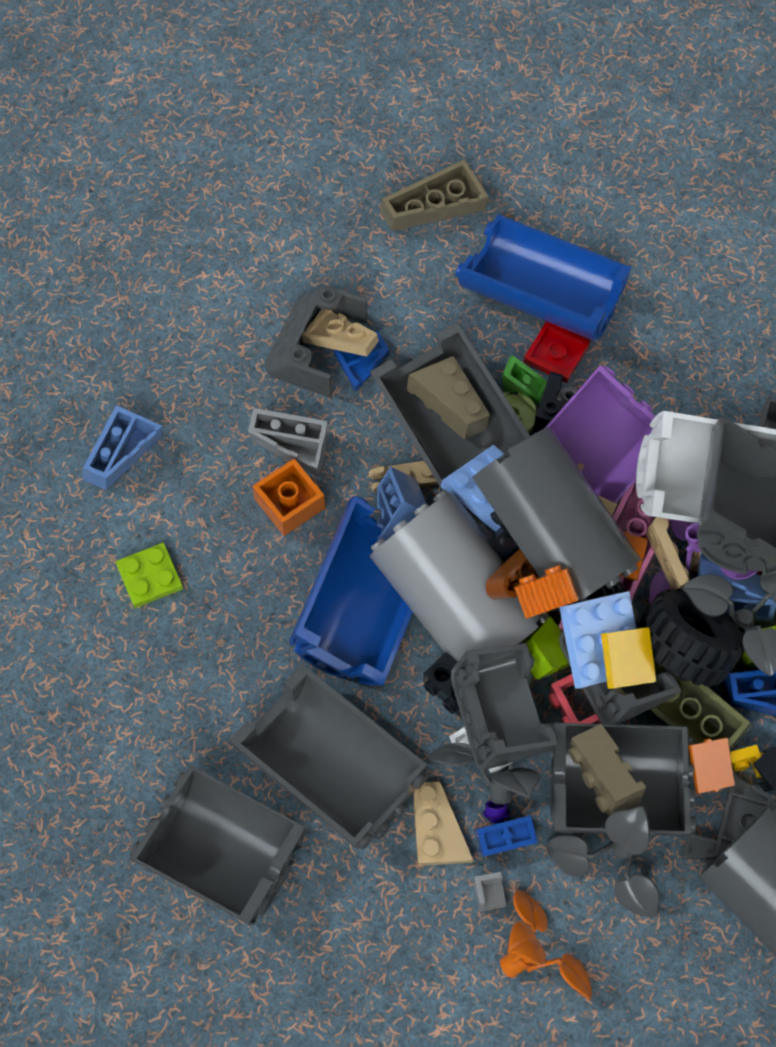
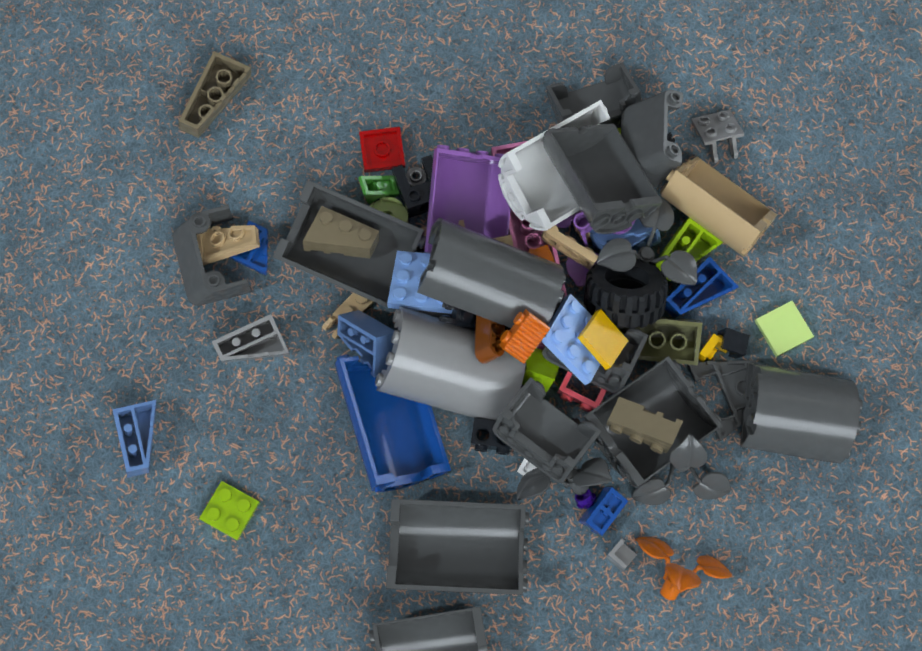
camera: 40 degrees left, 10 degrees up
(289, 497) = (284, 386): orange brick -> none
(437, 830) = (556, 539): tan wing -> none
(545, 277) = (336, 101): blue cylinder -> none
(711, 765) = (698, 368): orange piece -> none

